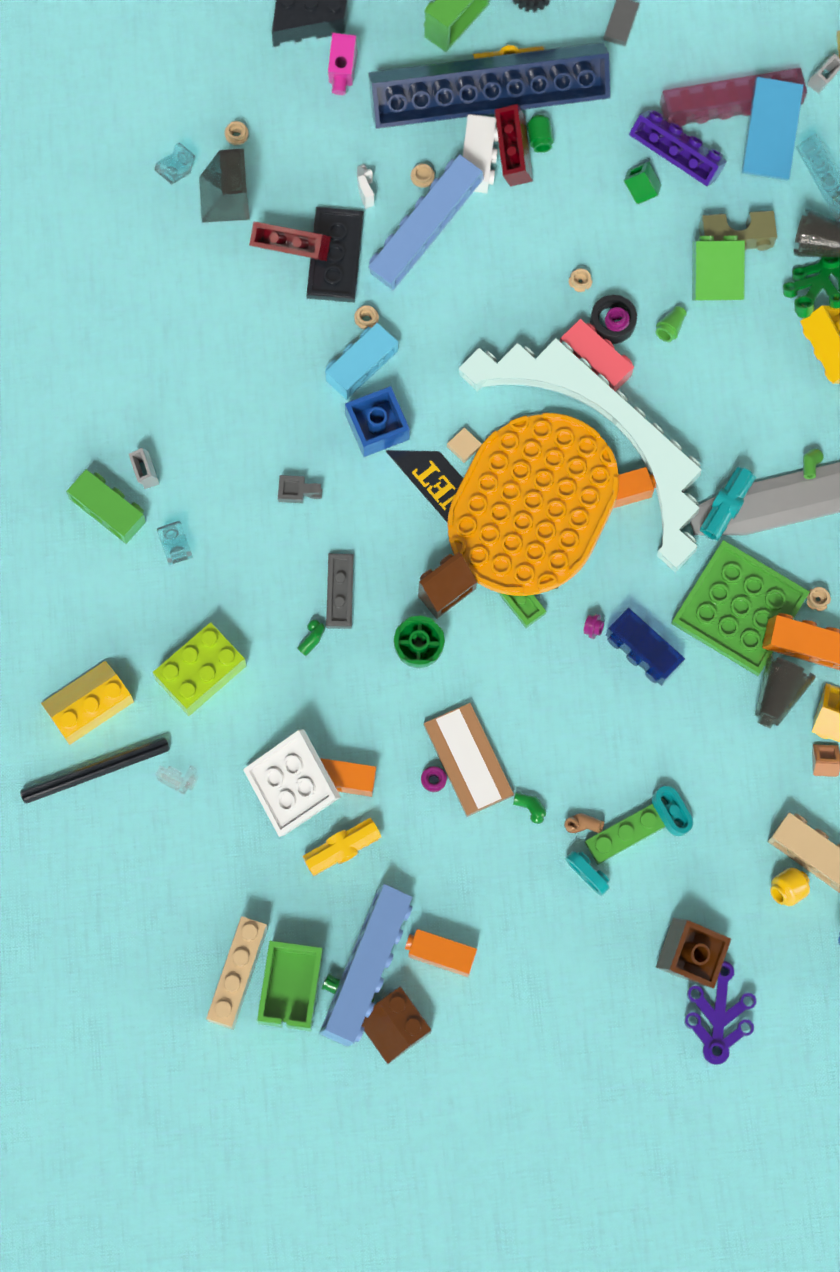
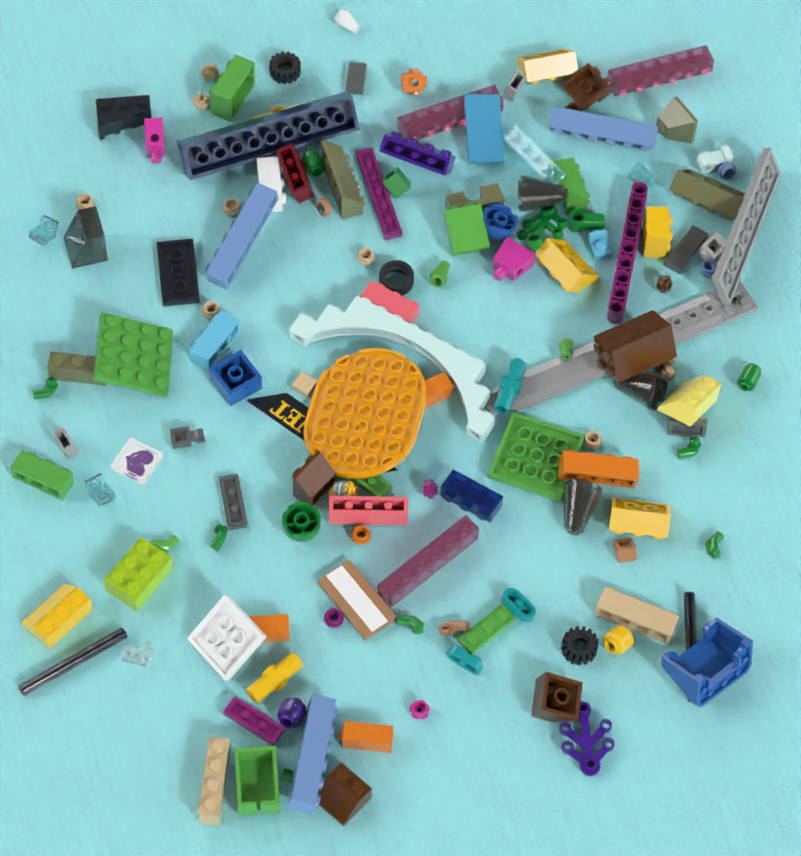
camera: 10 degrees left, 15 degrees down
(136, 390) = (47, 391): none -> green arm
(180, 367) = (72, 368): none -> olive brick
(230, 509) = (136, 461): none -> clear tile
(239, 635) = (167, 545): none -> bright green arm
(253, 363) = (133, 354): none -> bright green plate
(289, 241) = (143, 266): dark red brick -> none
(304, 900) = (254, 721): none -> magenta plate
(353, 900) = (291, 712): none -> dark purple head
(364, 177) = (190, 222): white slope -> none
(411, 21) = (201, 101): none -> tan plate
(482, 609) = (343, 488): none -> head
(492, 663) = (361, 530): none -> orange plate
(508, 642) = (368, 510): none -> coral brick
(523, 928) = (419, 704): none -> dark pink plate
(540, 199) = (323, 207): none -> nougat tile
(570, 727) = (428, 561): none -> clear pink brick
(571, 166) = (342, 180): none -> olive slope
(615, 193) = (378, 194): none -> magenta tile
(617, 314) = (399, 275): magenta plate -> none
(692, 34) = (408, 77): none -> orange brick
(750, 872) = (579, 656): none -> black tyre
(764, 267) = (499, 221): none -> blue cylinder
(768, 324) = (512, 260): none -> dark pink torso

